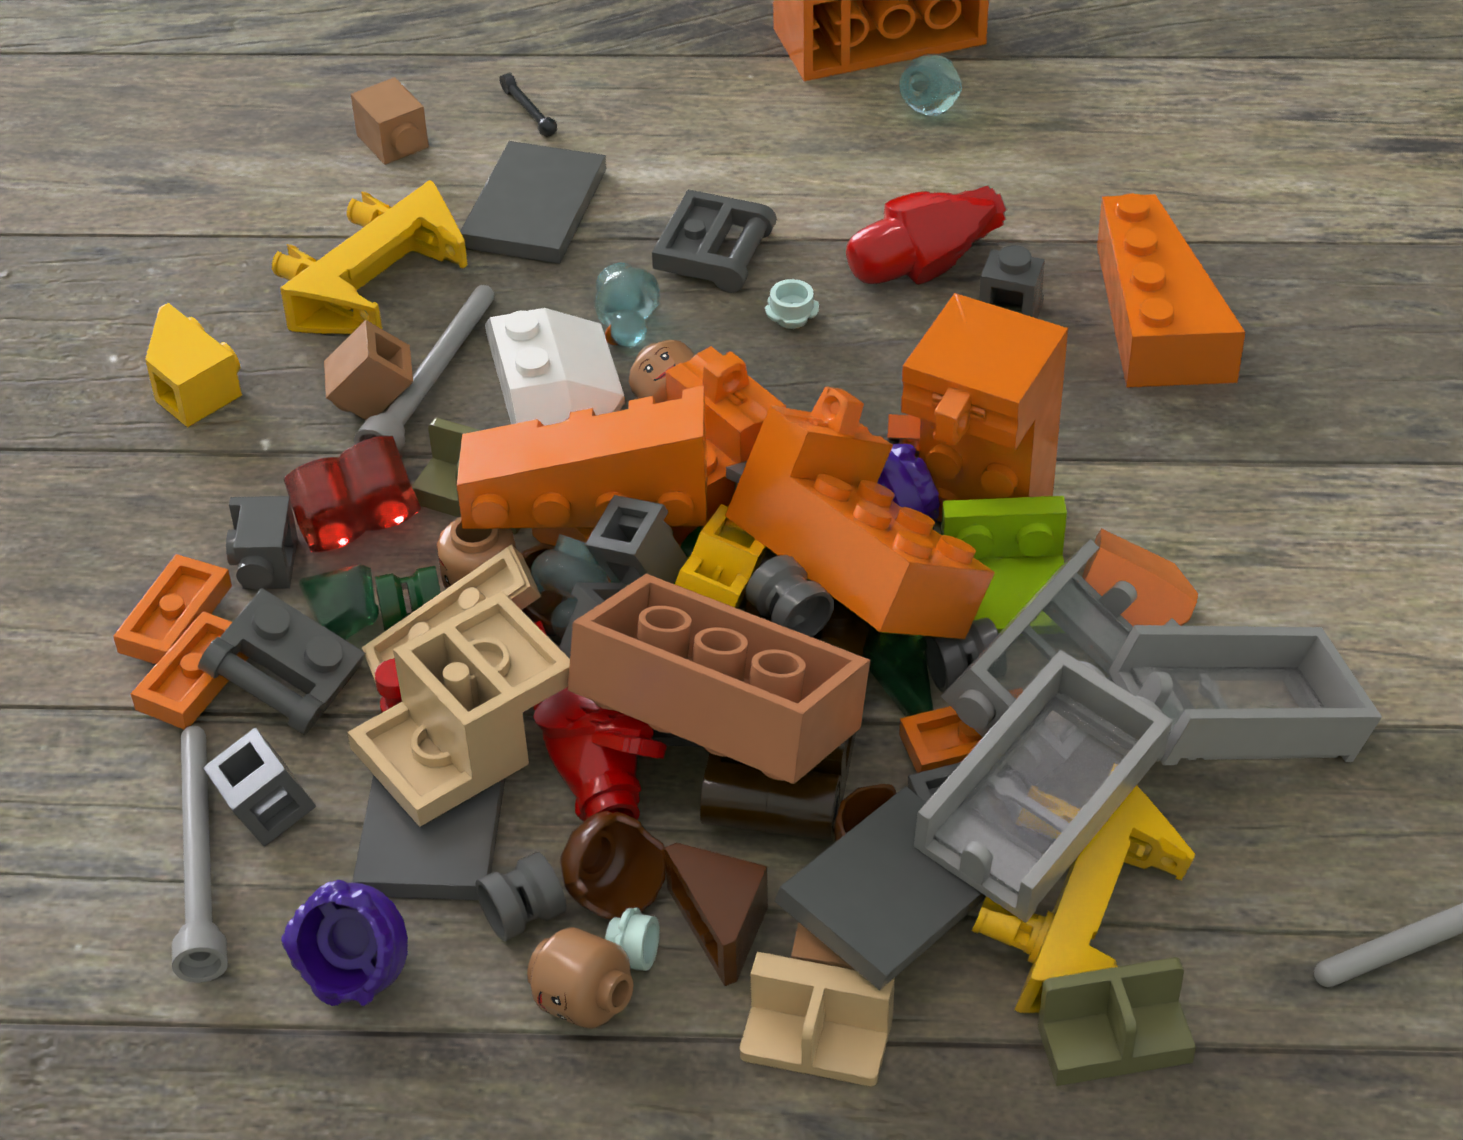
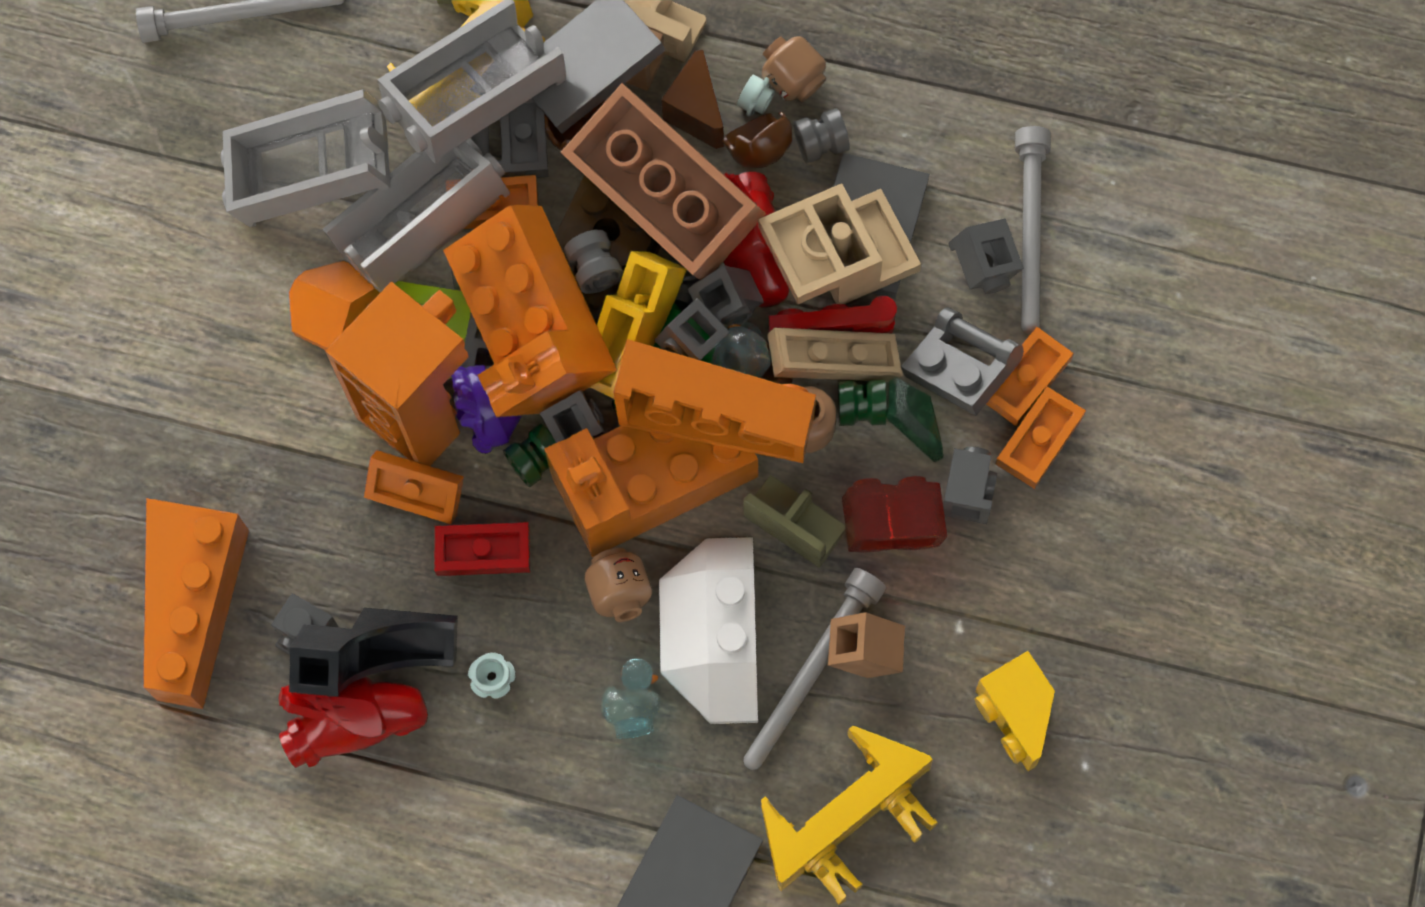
camera: 165 degrees left, 25 degrees up
(347, 942) = (933, 111): dark purple hair -> none
(698, 232) = (548, 786): dark grey plate -> none
(870, 383) = (482, 549): none -> red plate
(963, 220) = (332, 658): none -> black arch

